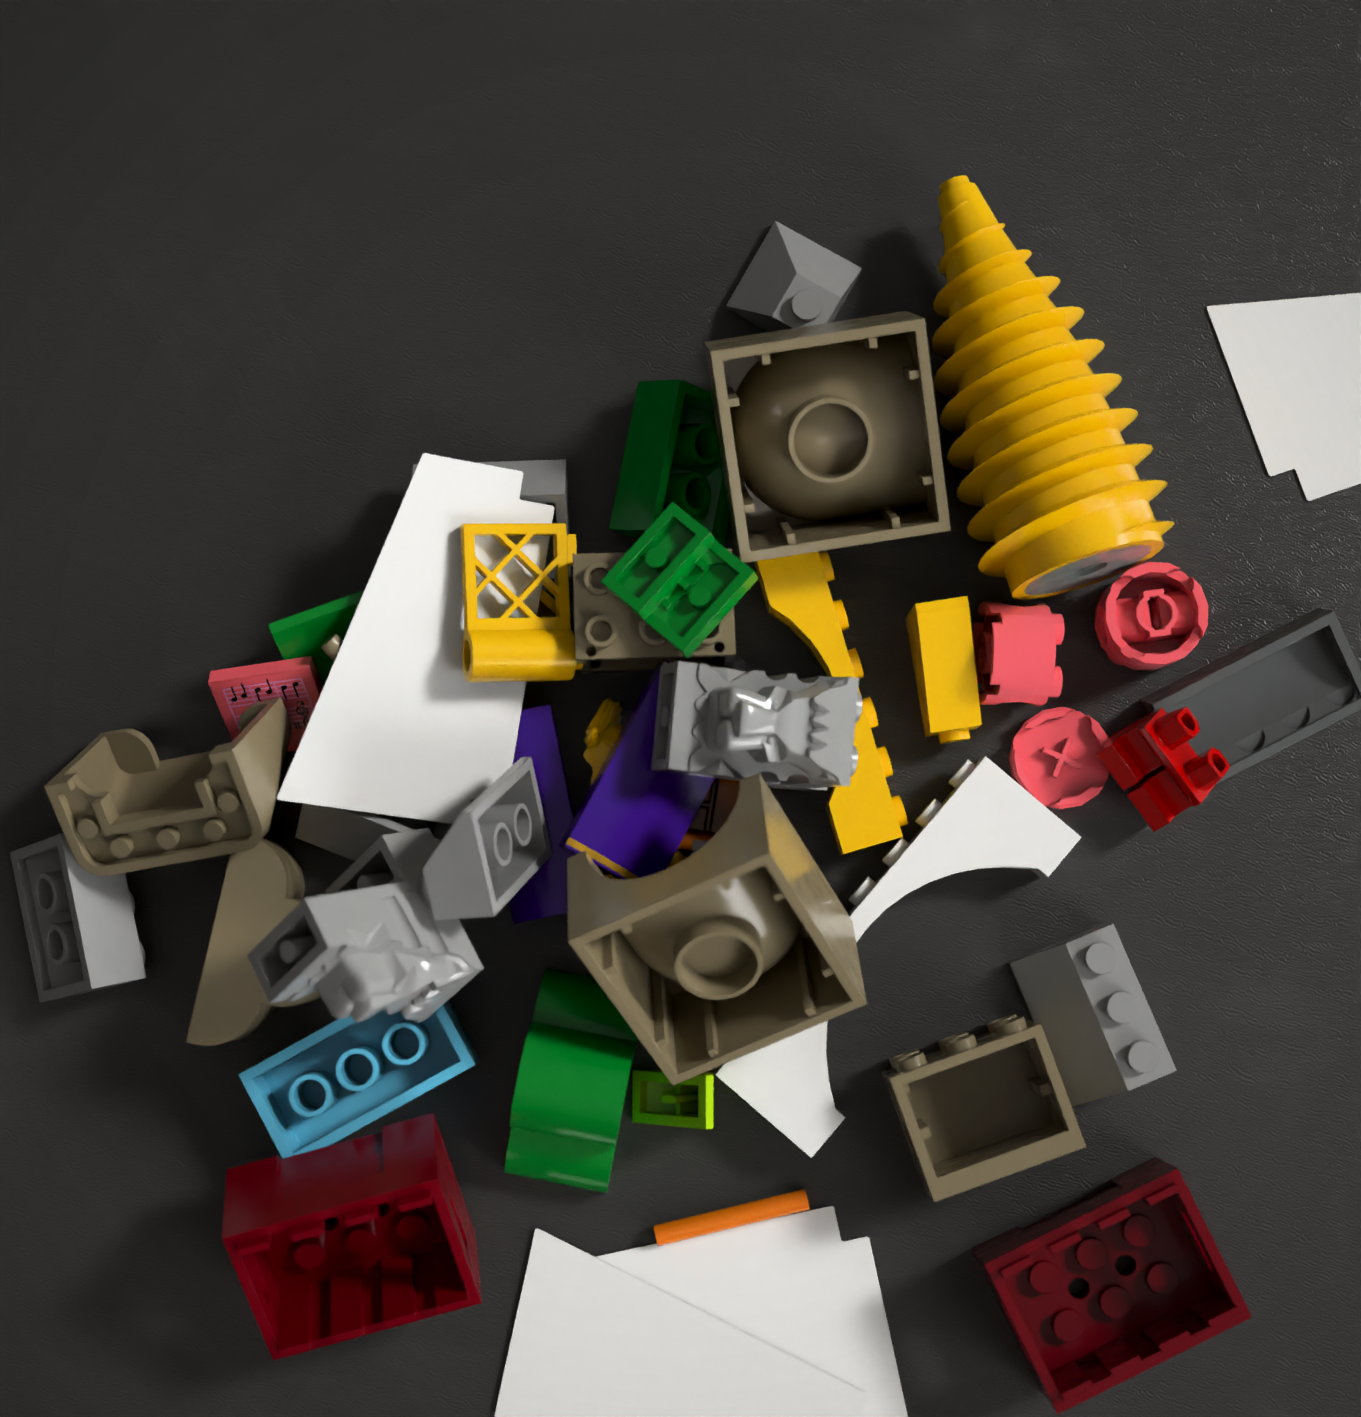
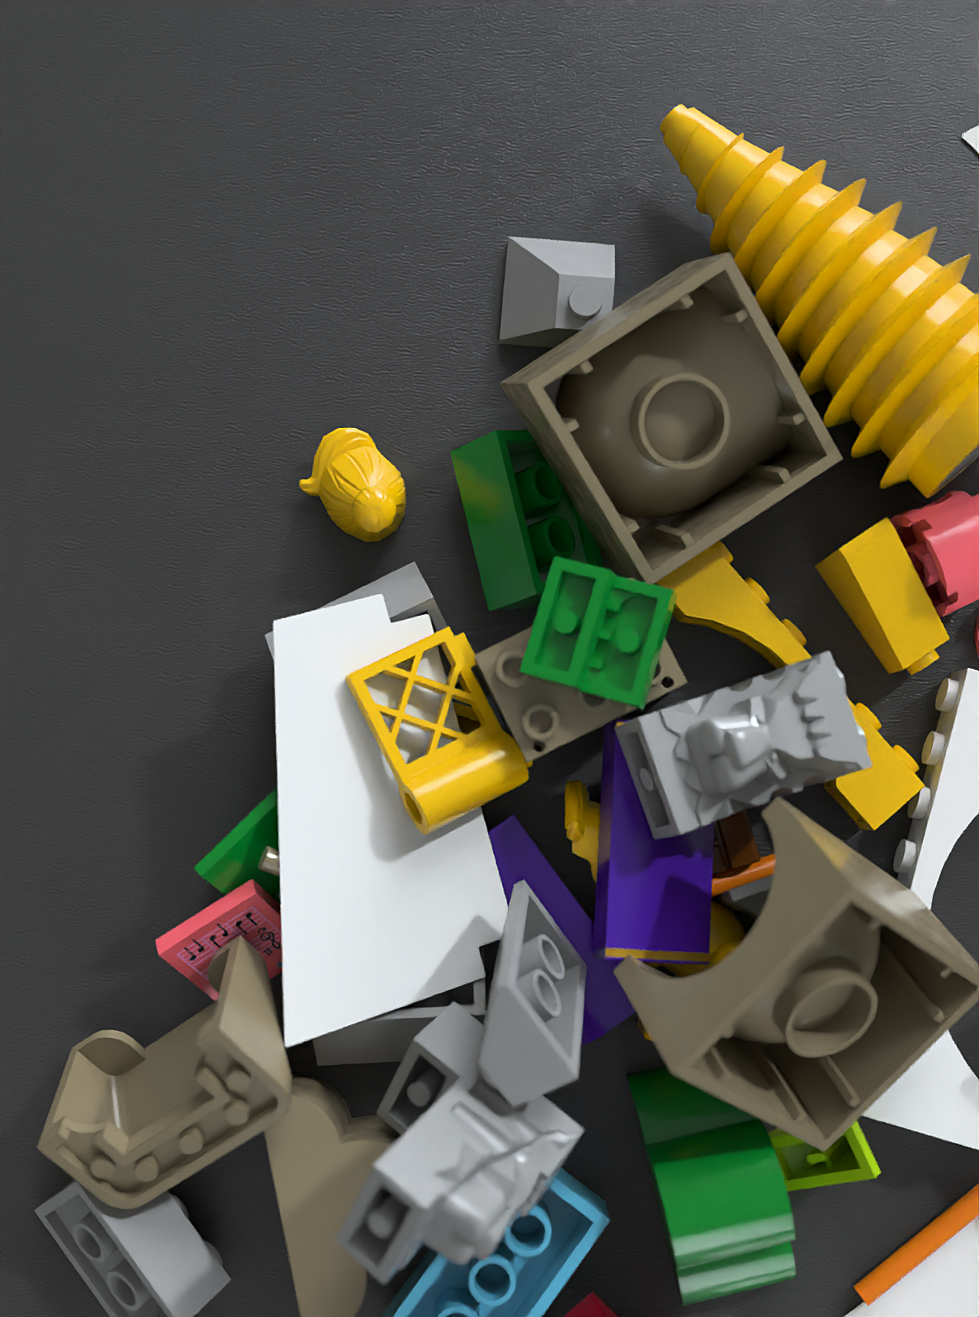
camera: 25 degrees left, 0 degrees up
(549, 375) = (357, 485): none -> yellow hair

